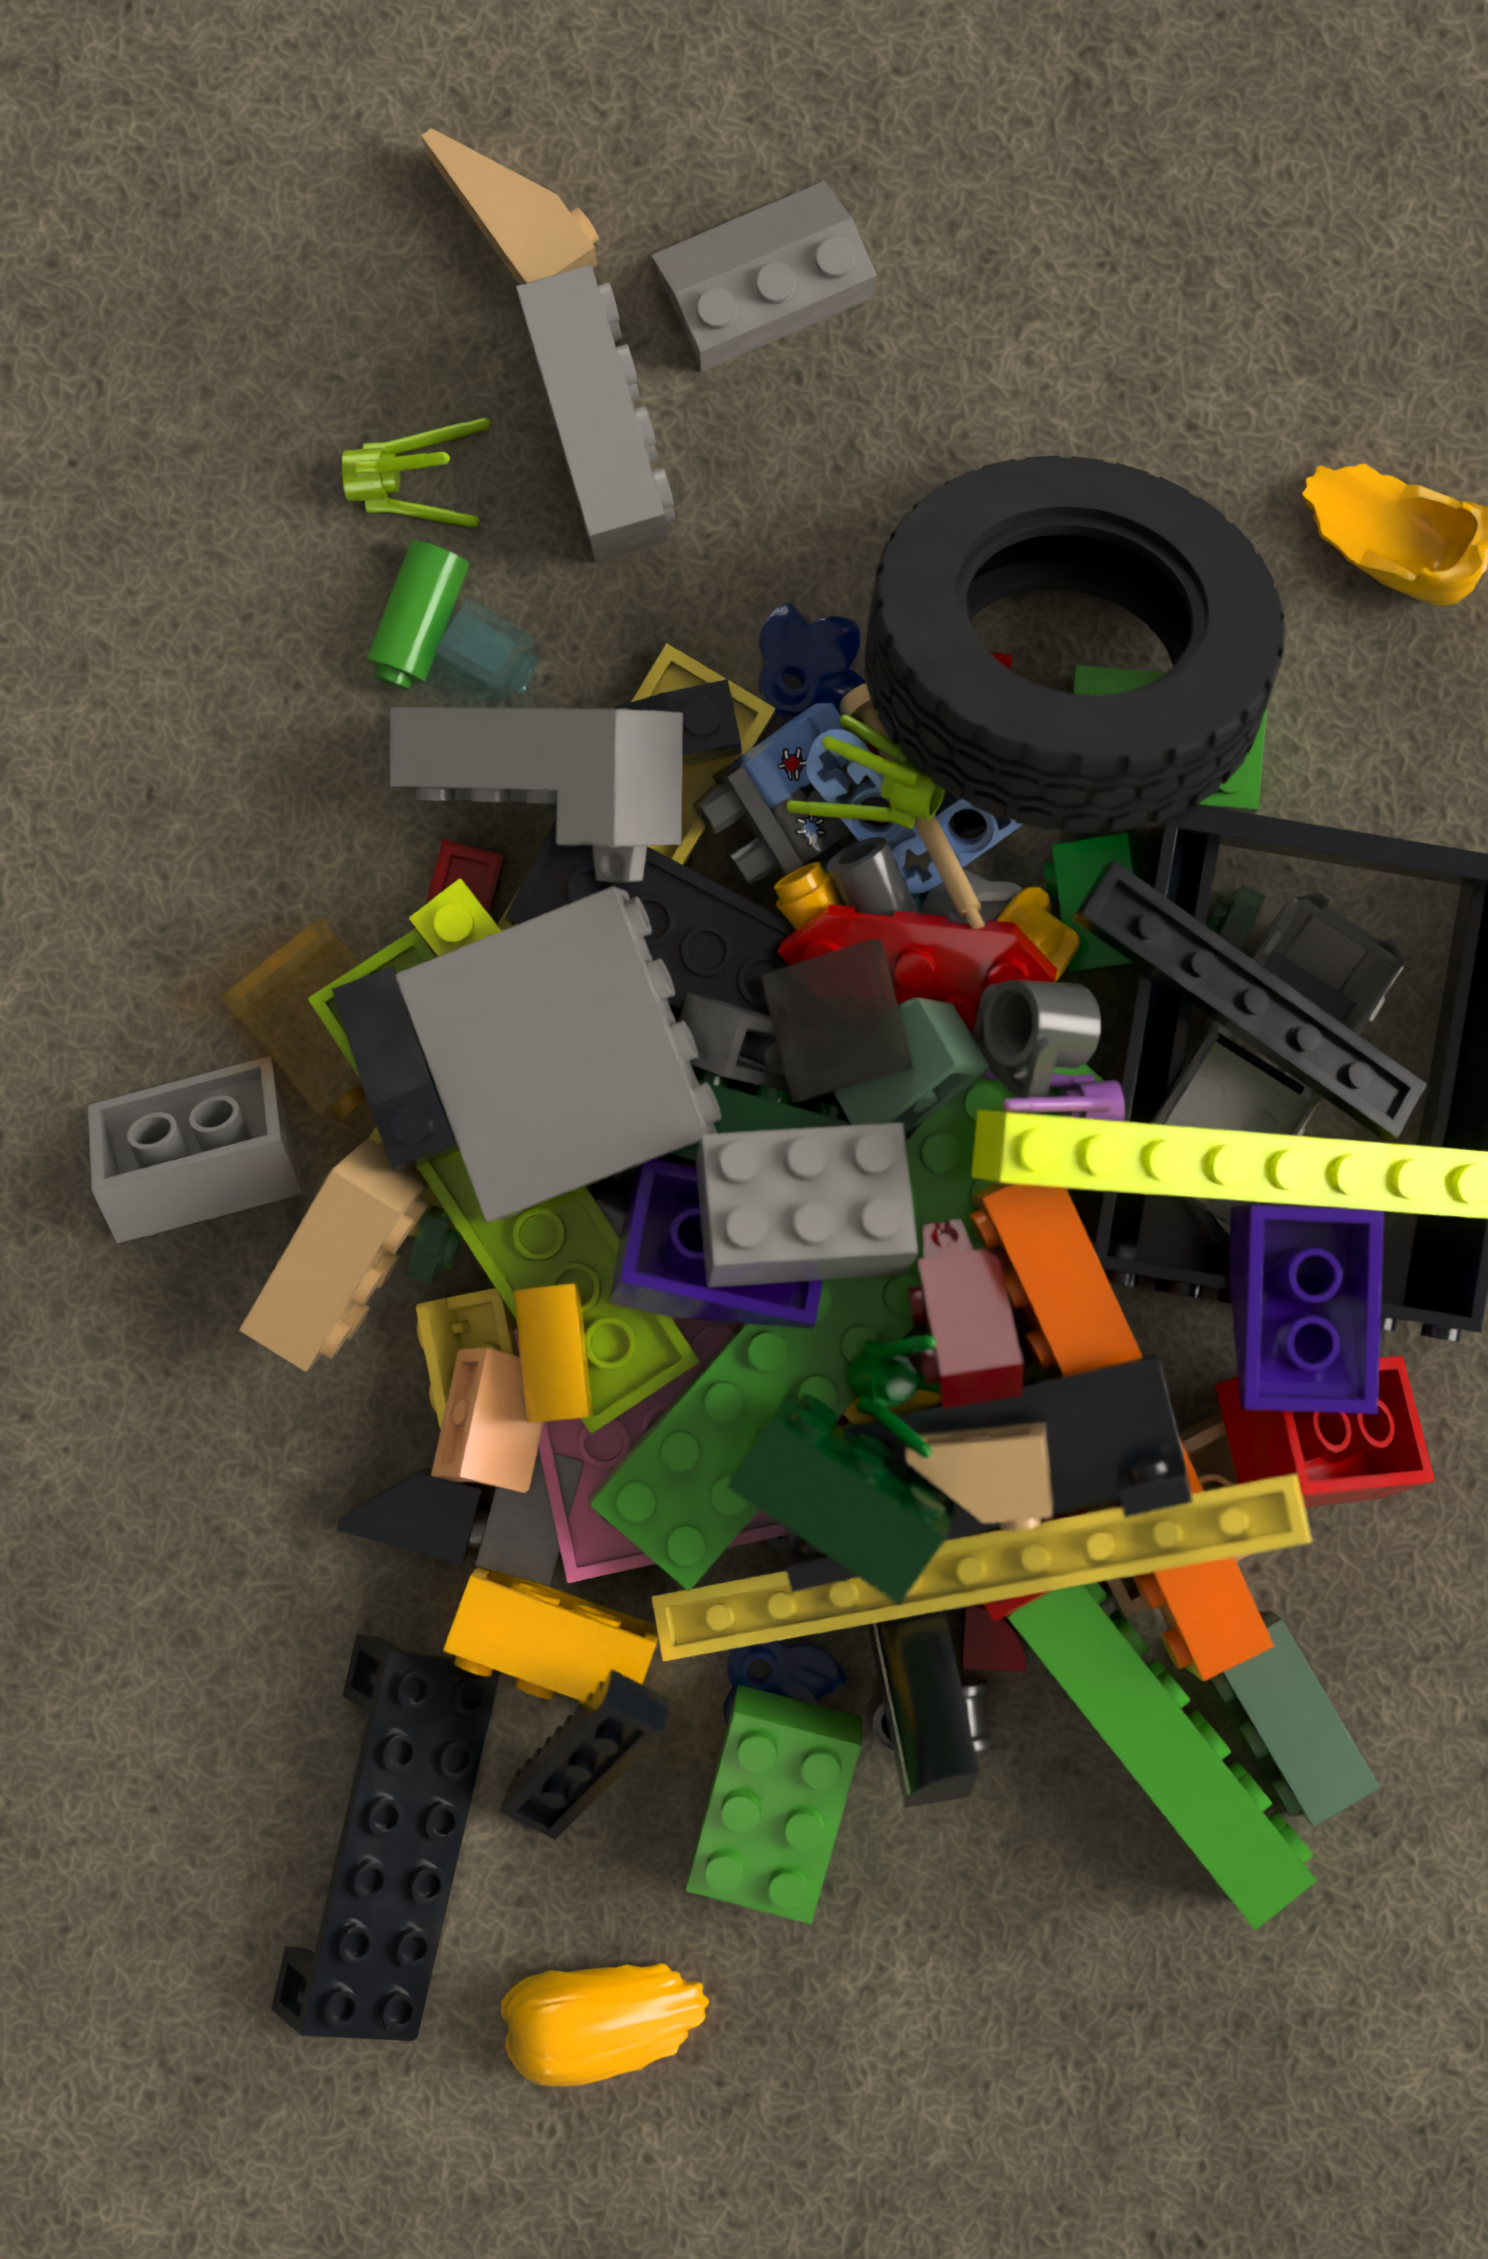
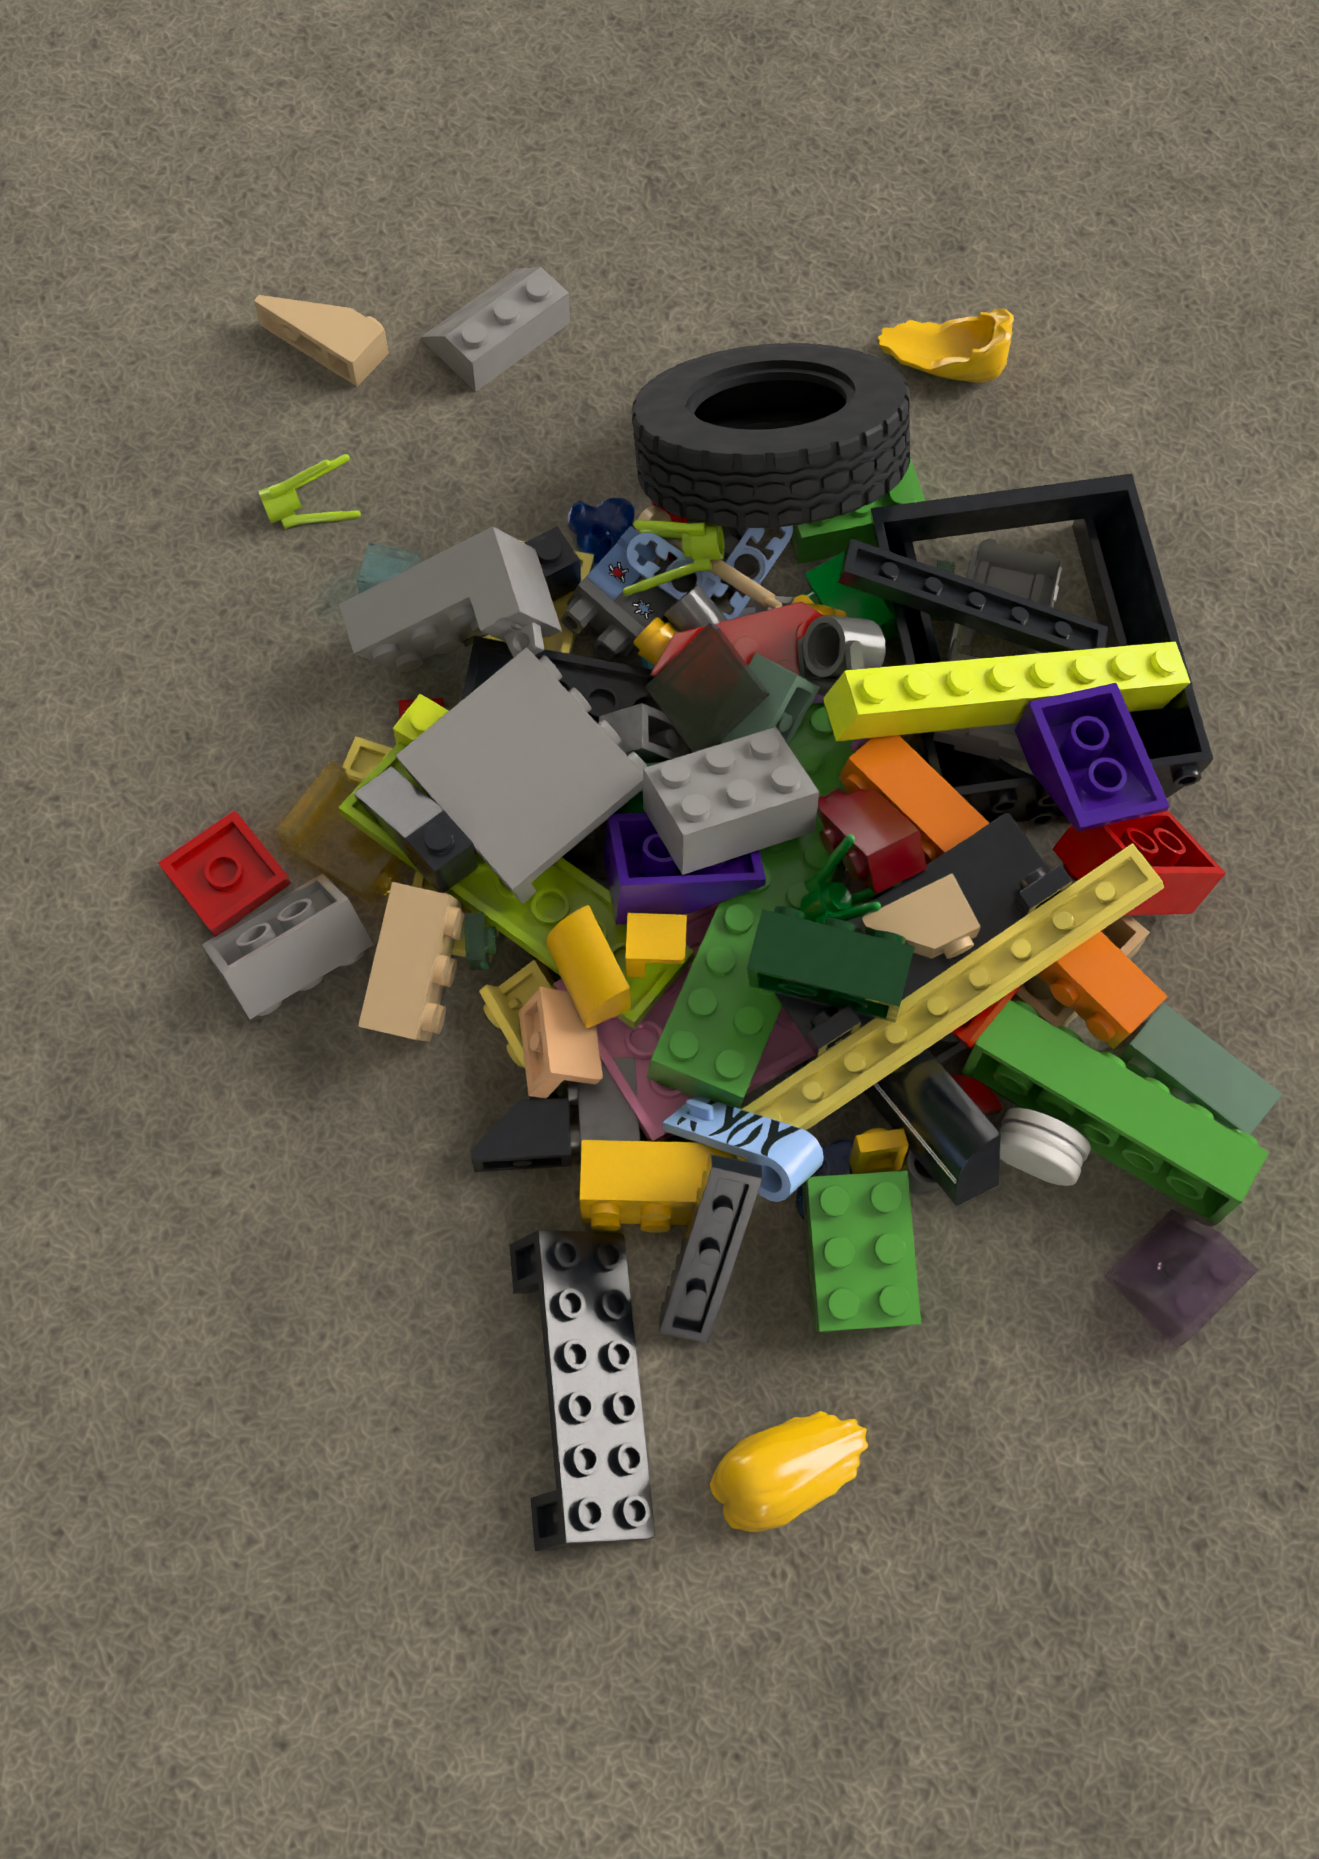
camera: 20 degrees left, 20 degrees down
(142, 1019) = (224, 873): none -> red plate
(374, 917) = (363, 758): none -> light yellow tile
(416, 614) = (336, 567): bright green brick -> none
(591, 403) = (417, 417): light grey brick -> none
(648, 1352) = (654, 940): none -> yellow panel
(677, 1643) = (783, 1150): none -> light blue door
(843, 1686) = (878, 1151): none -> yellow plate
(1049, 1749) = (1042, 1146): none -> white head
(1159, 1958) = (1180, 1275): none -> slope

